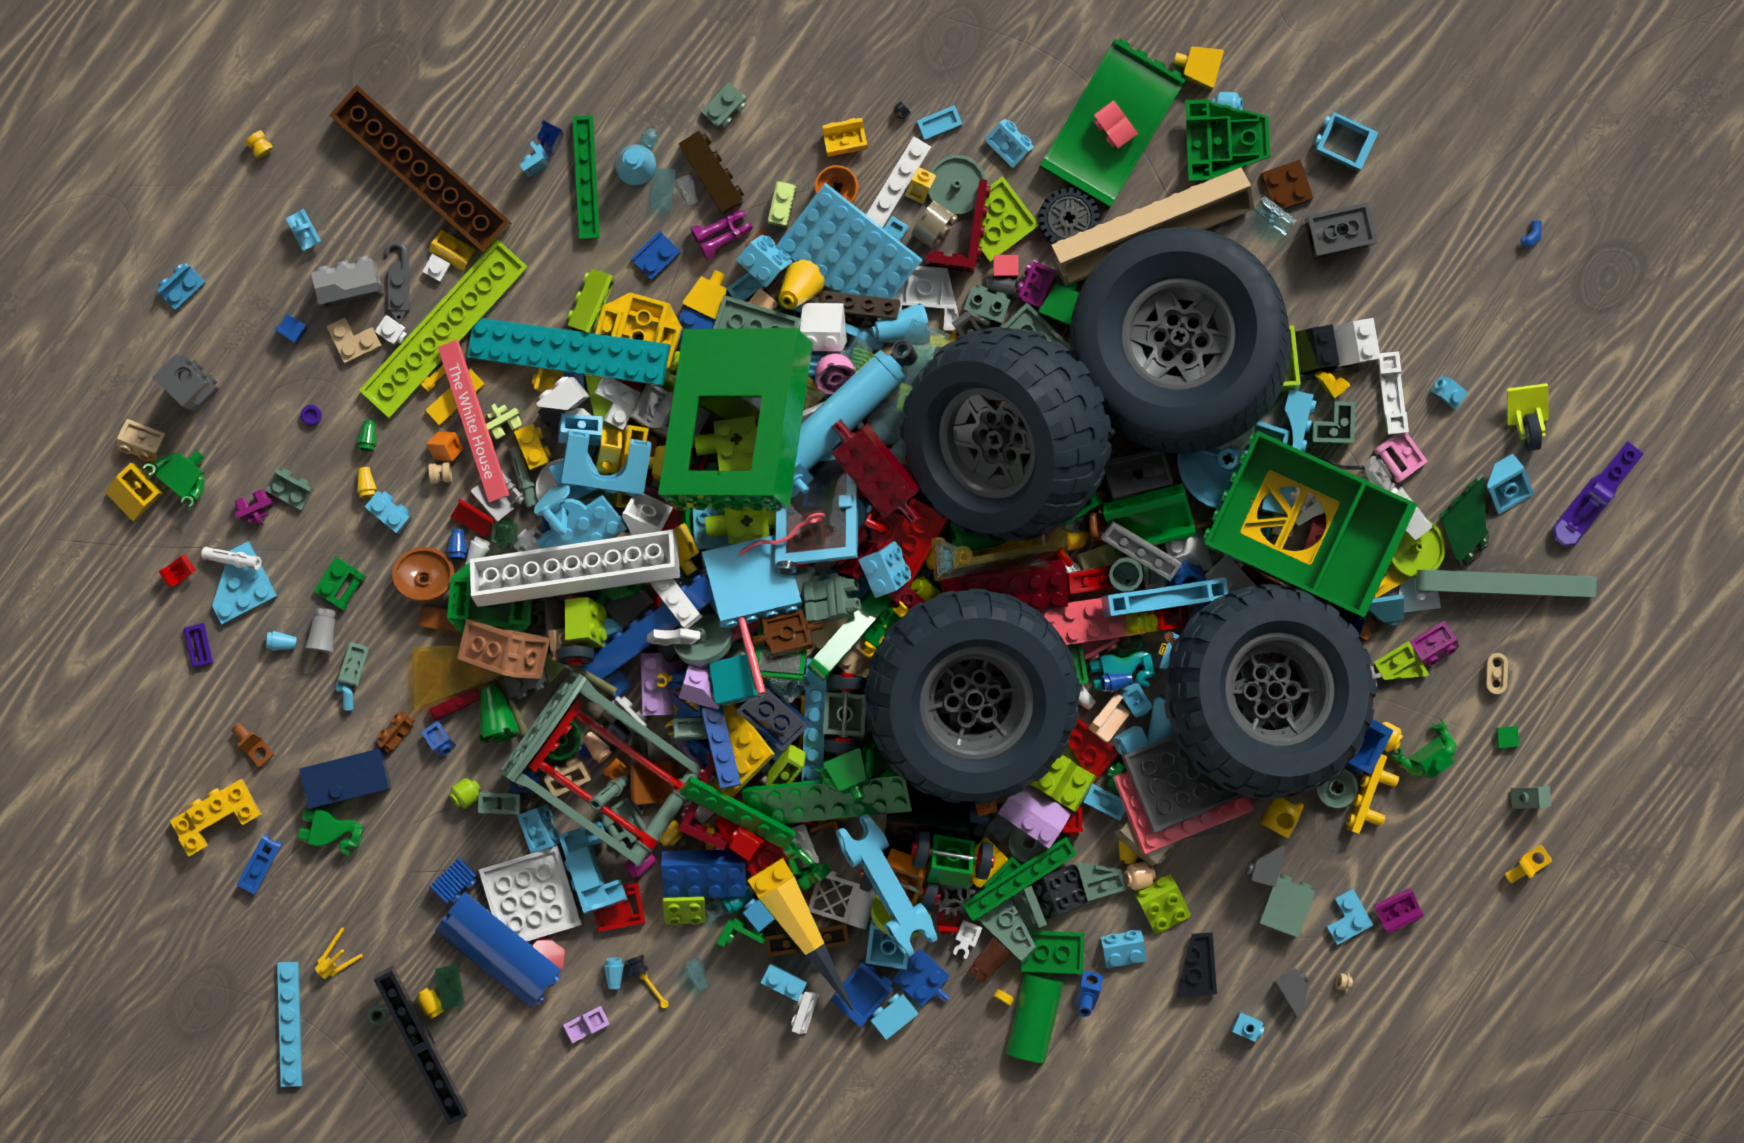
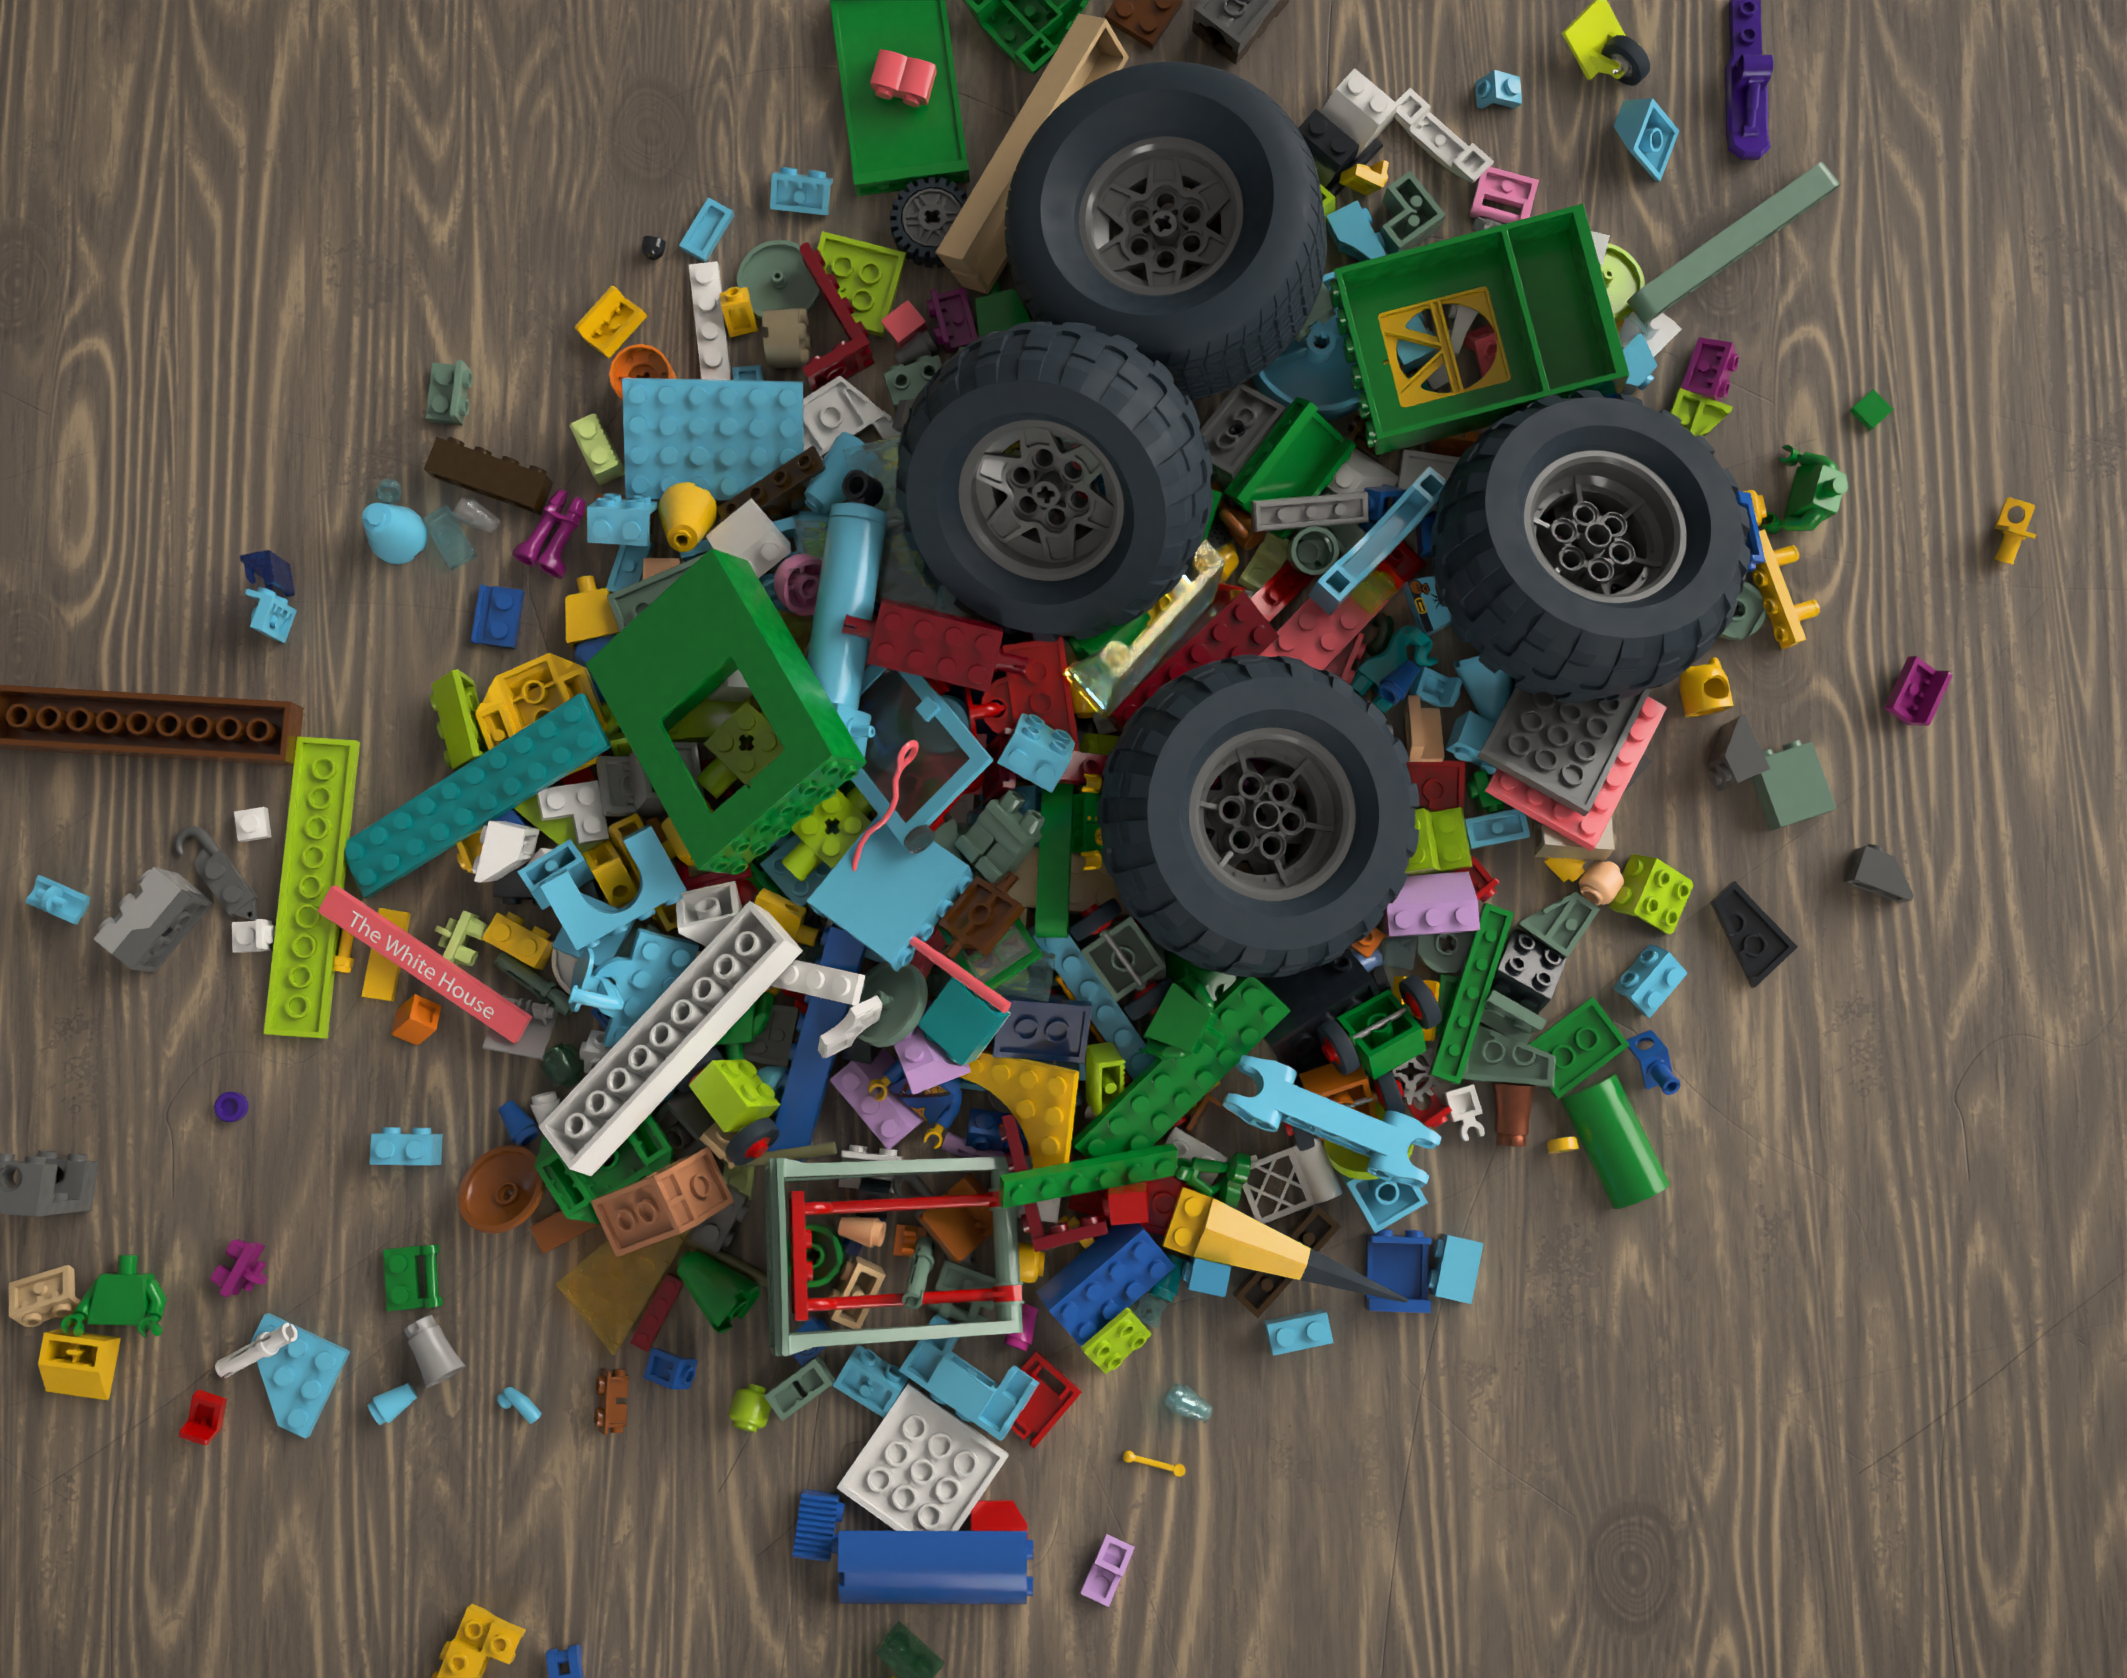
camera: 40 degrees left, 5 degrees down
(206, 643) = (305, 1475): dark purple tile -> none
(251, 743) = (448, 1554): dark orange bracket -> none
(290, 489) = (270, 1213): sand green bracket -> none
(291, 328) = (133, 1024): blue panel -> none
(327, 830) = (618, 1584): green hips -> none
(345, 778) = (592, 1506): dark blue brick -> none
(351, 345) = (215, 990): tan plate -> none
(353, 664) = (501, 1361): sand green plate -> none
(366, 486) = (354, 1136): yellow cone -> none
(367, 436) = (316, 1080): green cone -> none
(435, 473) = (434, 1055): tan wheel -> none
(452, 250) = (255, 790): yellow slope -> none
(472, 518) = (512, 1077): red panel -> none
(586, 177) = (349, 590): green plate -> none
(613, 971) = (1090, 1480): medium azure cone -> none
(619, 681) = (832, 1132): blue tile -> none
(636, 965) = (1111, 1451): black wheel -> none
(689, 729) = (960, 1117): sand green plate -> none
(720, 747) = (1009, 1114): blue plate -> none
(737, 924) = (1189, 1327): green bracket -> none
(806, 1008) = (1346, 1337): white plate -> none
(922, 978) = (1454, 1198): blue plate -> none
(1247, 1026) = (1861, 956): medium azure brick -> none
(1274, 215) = (1156, 47): clear light blue plate -> none
(1344, 981) = (1923, 820): tan plate -> none
(1354, 919) = (1876, 744): medium azure plate -> none
(1466, 522) = (1637, 212): dark green piece -> none
(1496, 673) = (1805, 349): tan plate -> none
(1531, 797) = (1954, 453): sand green brick -> none

